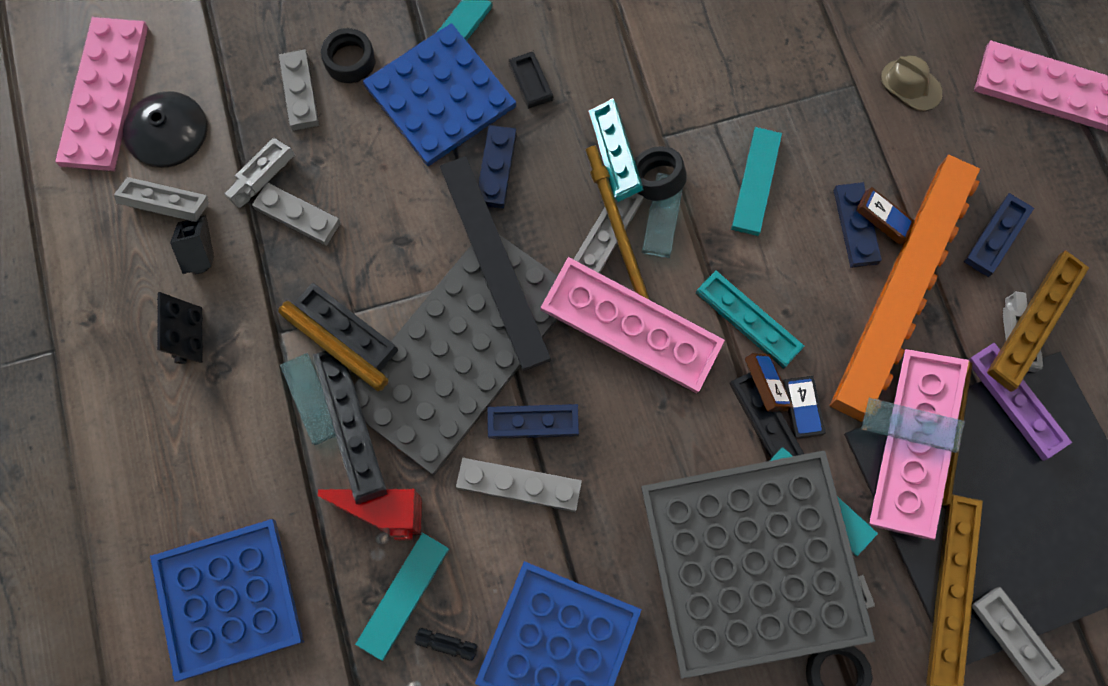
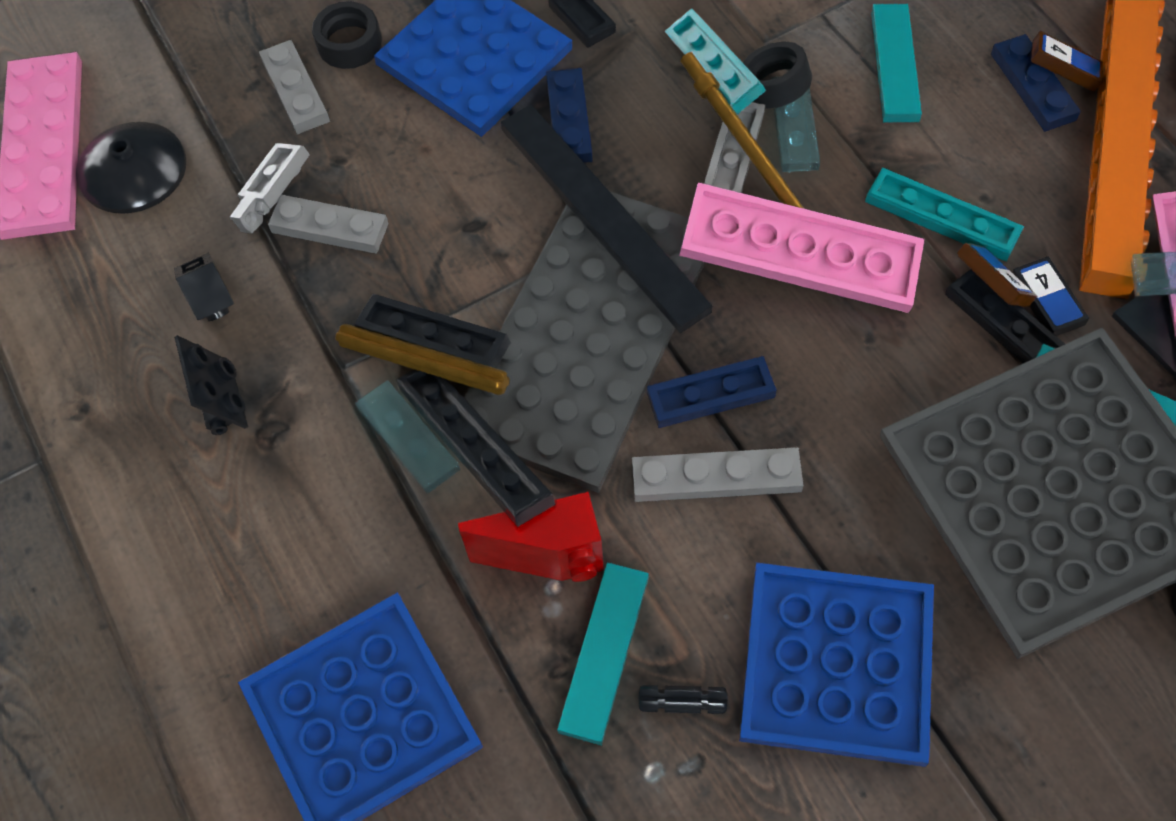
camera: 10 degrees left, 10 degrees down
(161, 199) = (147, 243): light grey plate -> none

